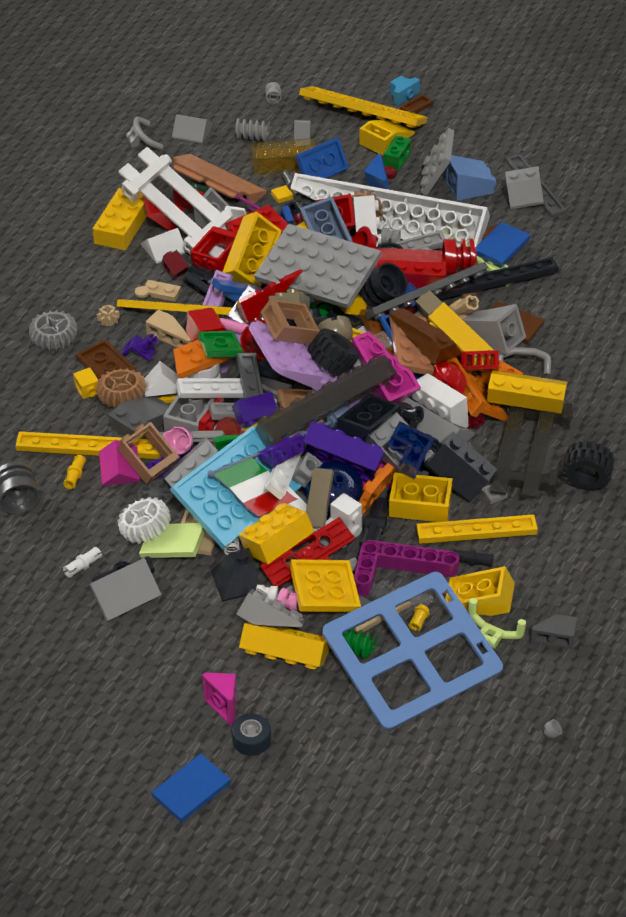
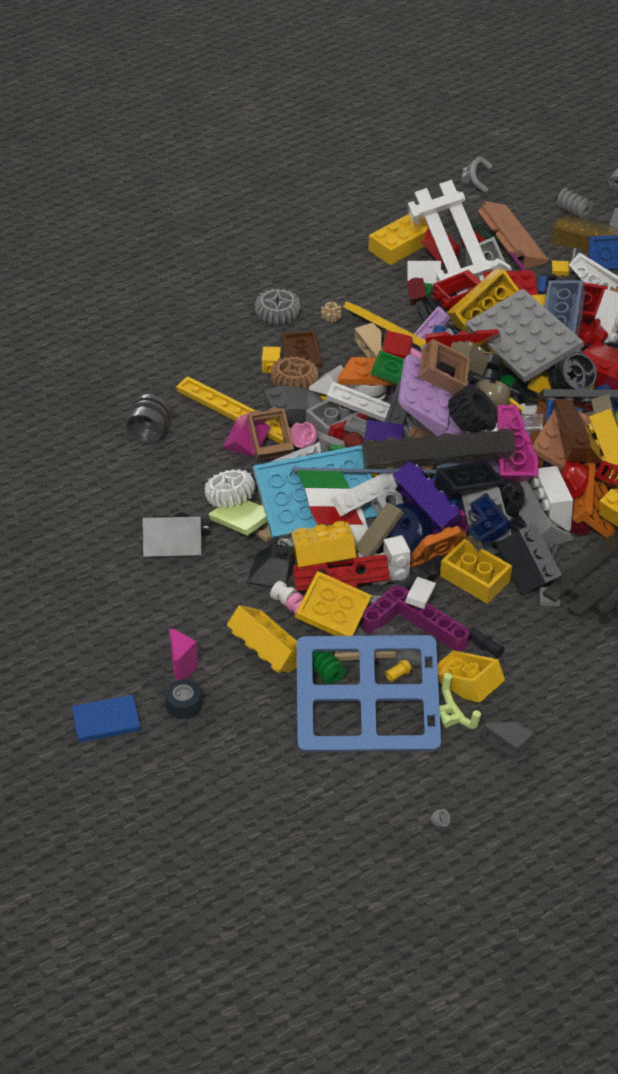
camera: 30 degrees right, 0 degrees up
(74, 472) = (207, 427): yellow pin -> none
(82, 562) = (158, 501): white pin -> none
(143, 347) = (339, 348): dark purple bracket -> none
(158, 290) = (390, 308): tan hinge -> none
(191, 129) = (522, 184): light grey slope -> none
(232, 287) = (439, 324): blue tile -> none
(263, 611) = (266, 602): light grey slope -> none
(282, 450) = (371, 476): dark purple bracket -> none
(392, 538) = (420, 592): none -> white tile
(476, 529) = (508, 620): yellow plate -> none

